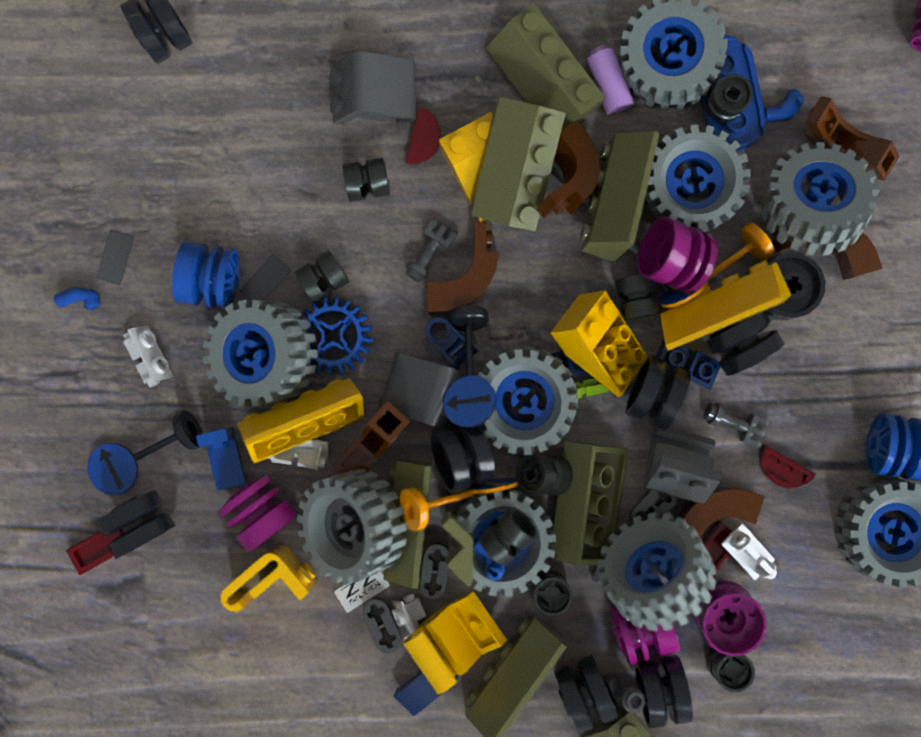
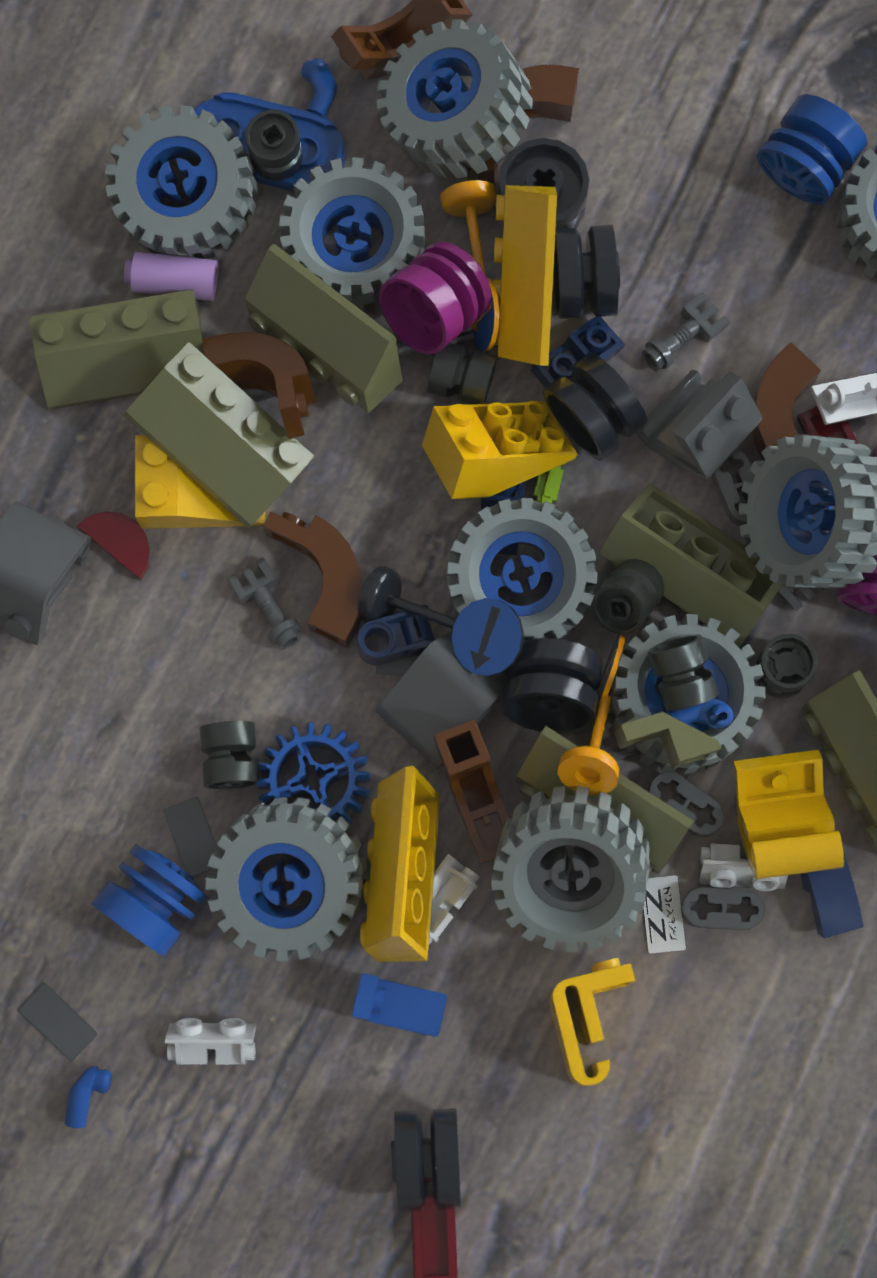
camera: 60 degrees left, 10 degrees down
(115, 468) = (337, 1161): piece -> none
(257, 513) = (494, 990): magenta wheel -> none
(366, 179) = (134, 636): pearl dark grey wheel -> none
(783, 470) = (771, 308): dark red tile -> none

